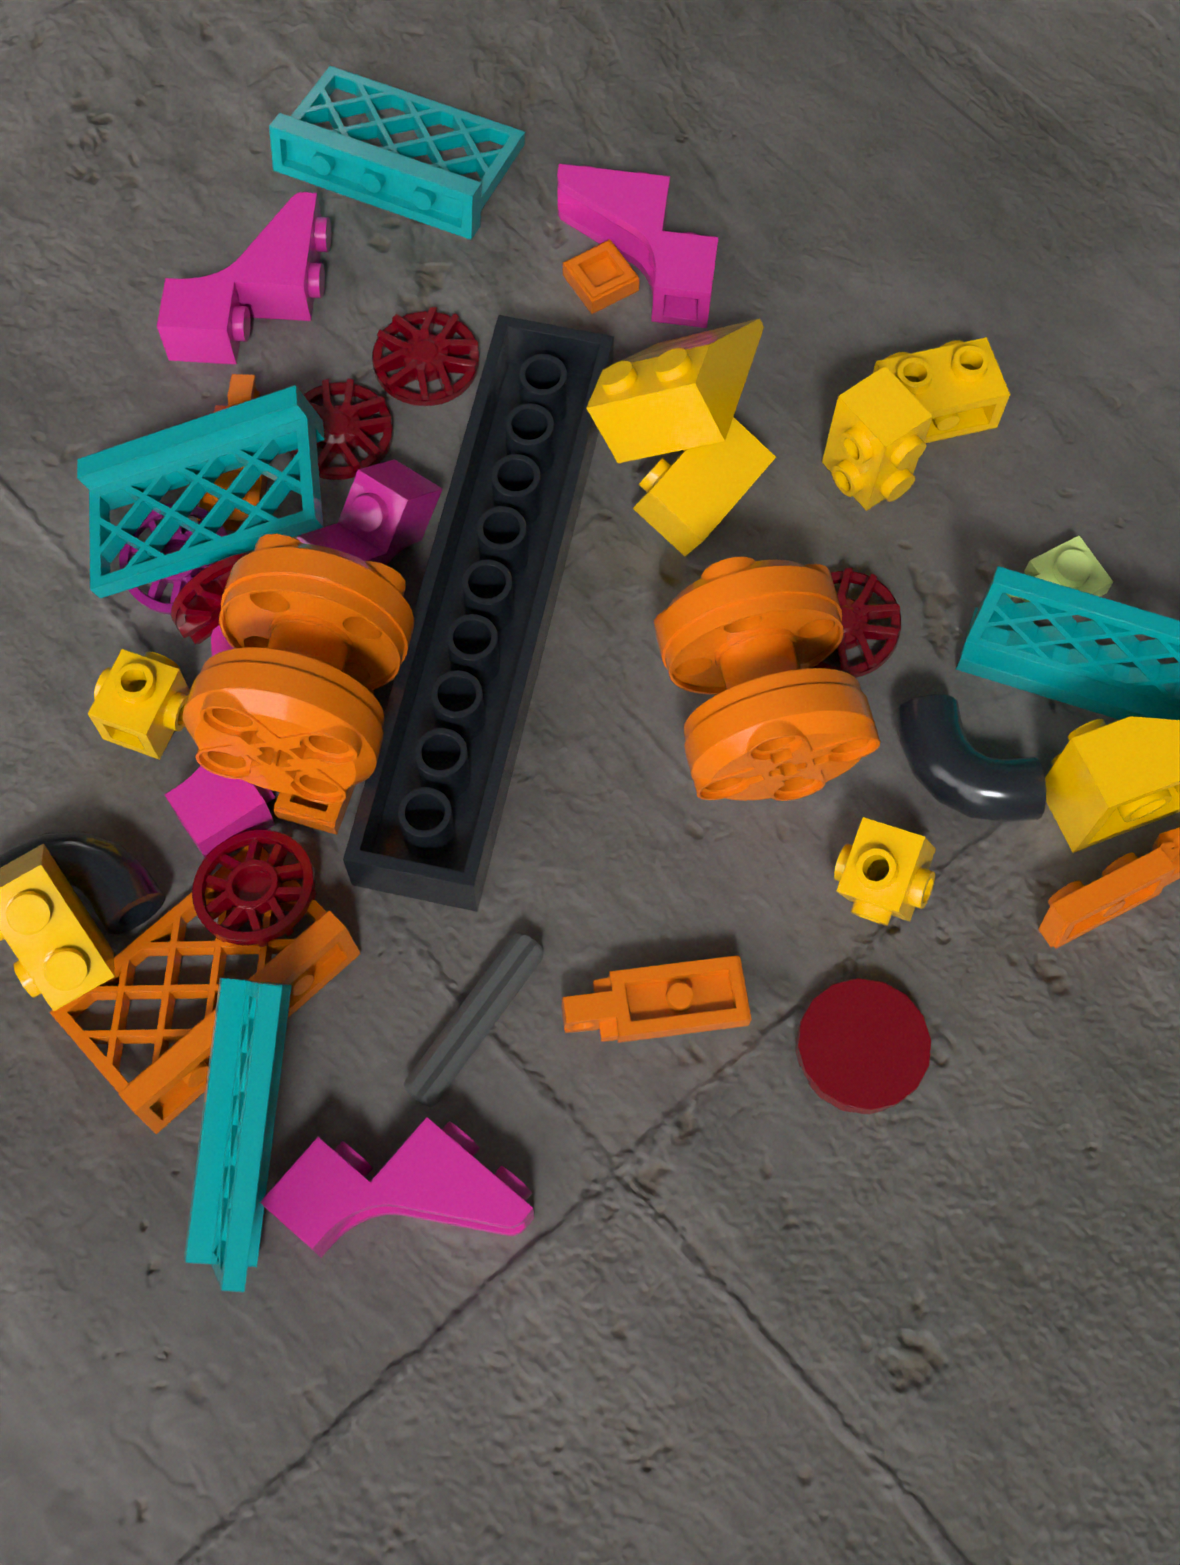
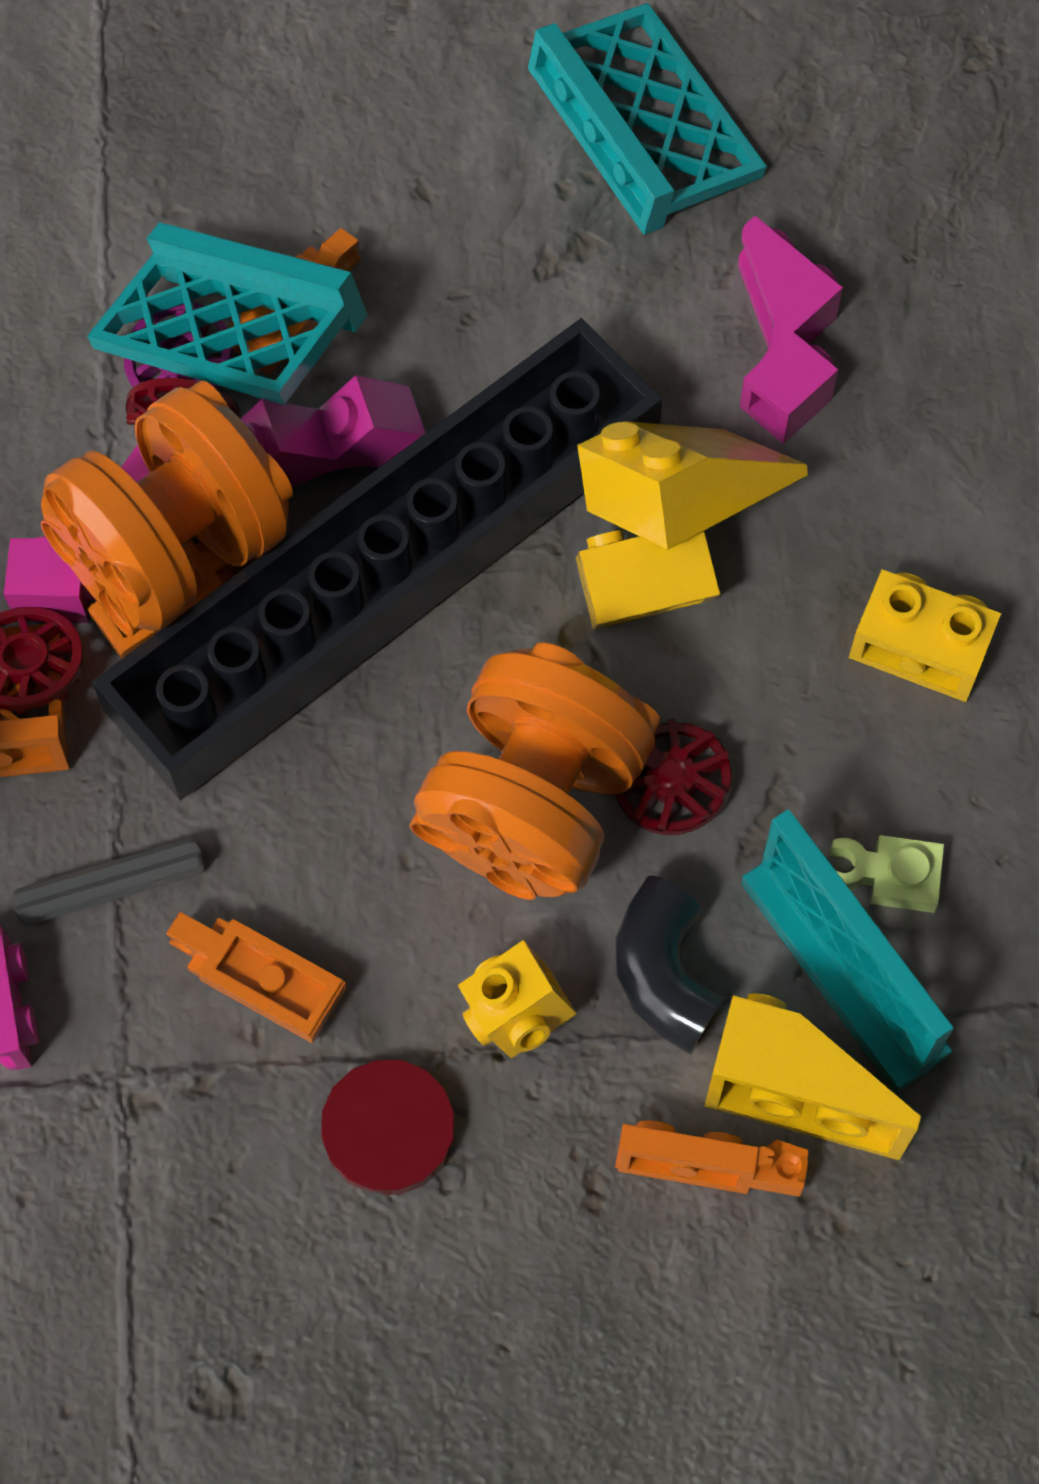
camera: 40 degrees right, 0 degrees up
(140, 702) = (49, 441): yellow brick -> none
(270, 280) = (443, 164): dark pink arch -> none
(346, 428) = (397, 331): dark red wheel -> none
(425, 357) = (515, 313): dark red wheel -> none
(601, 276) = (725, 339): orange tile -> none
(876, 439) = (818, 637): yellow brick -> none

